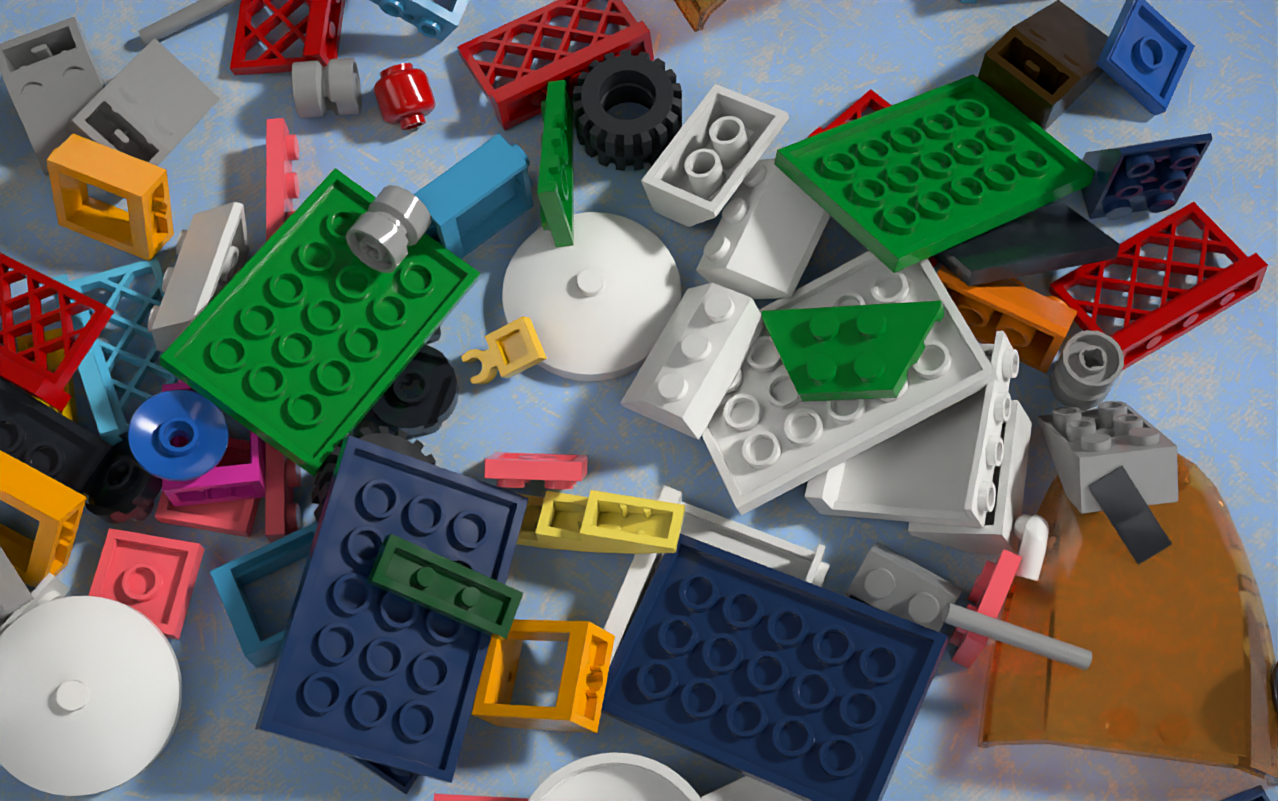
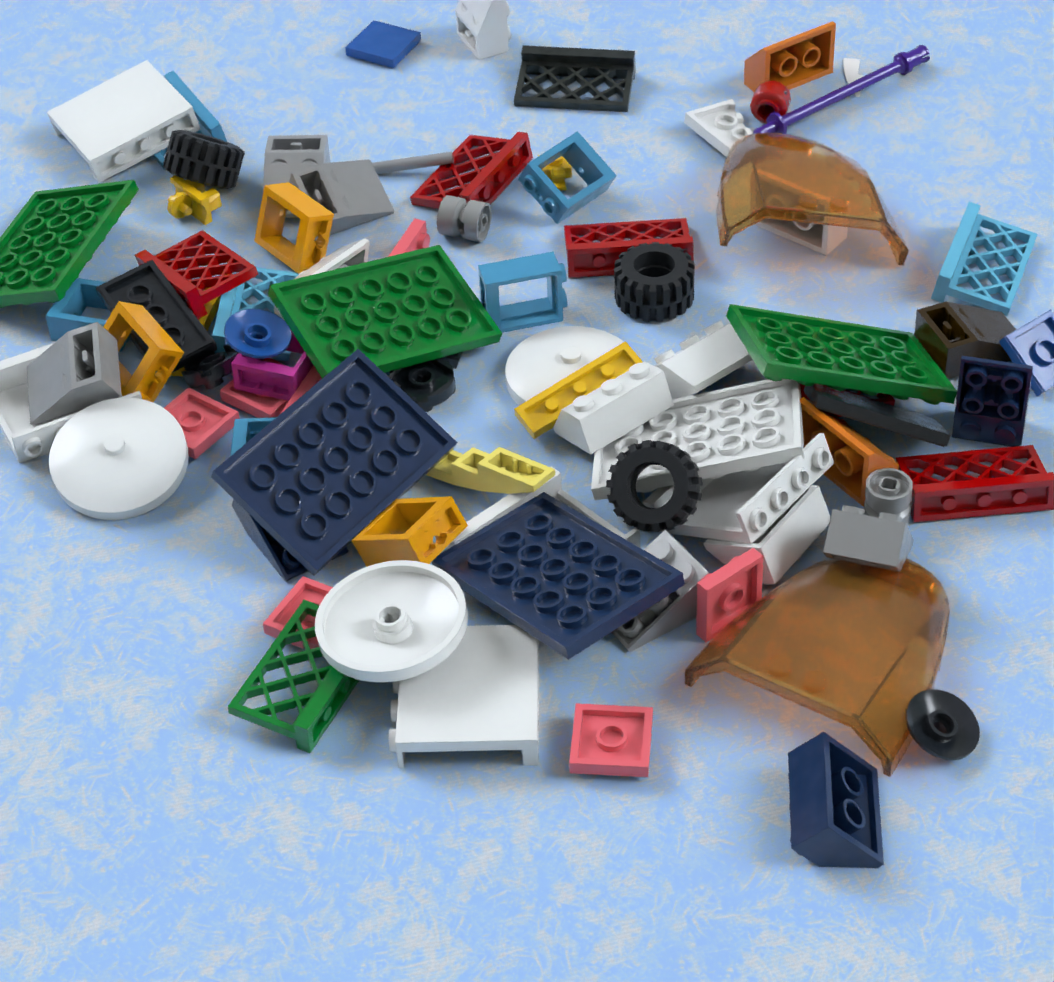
camera: 25 degrees right, 25 degrees down
(389, 226) = (452, 277): light grey wheel -> none
(404, 96) = (511, 236): red head -> none
(445, 587) = (372, 454): dark green plate -> none
(509, 352) = (495, 378): yellow plate -> none
(516, 469) = (472, 429): coral plate -> none
(557, 164) = (584, 290): green wing -> none
(633, 338) = (542, 410): none -> yellow plate
(711, 156) = (688, 313): white slope -> none
(841, 525) = (624, 480): none -> black tyre
(851, 348) = (718, 420): green wing -> none
(1016, 636) = (731, 591): light grey bar -> none
(1034, 536) = (784, 567): white arm -> none
(1130, 515) = (855, 560): black sticker -> none

